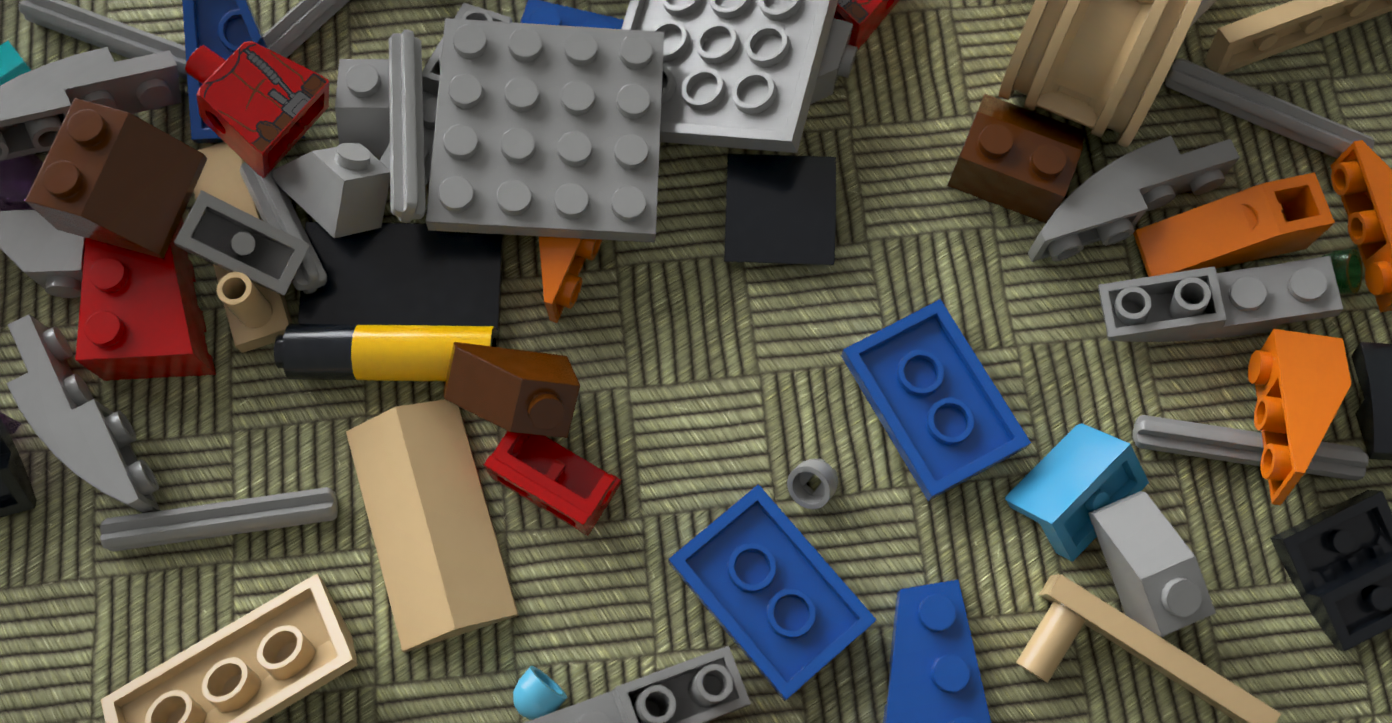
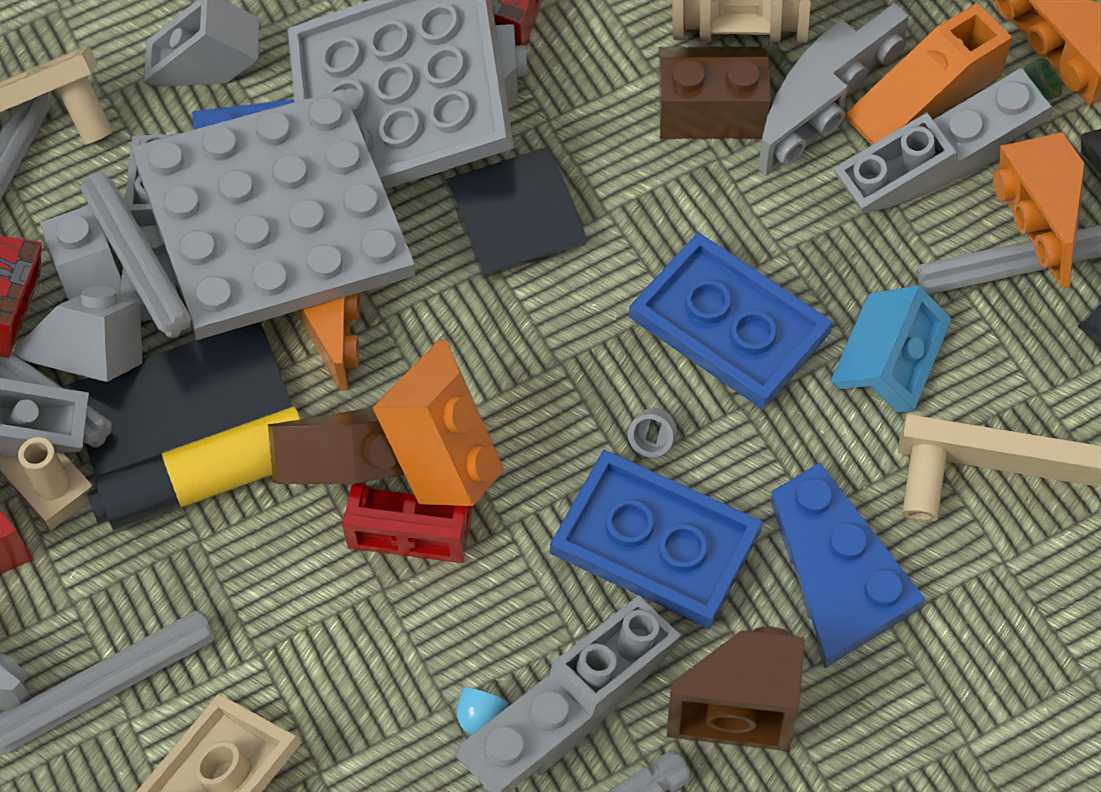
camera: 20 degrees left, 10 degrees down
(430, 523) = (307, 607): tan slope -> none
(609, 412) = (439, 432): none -> orange slope
(1151, 565) = (980, 378): light grey slope -> none

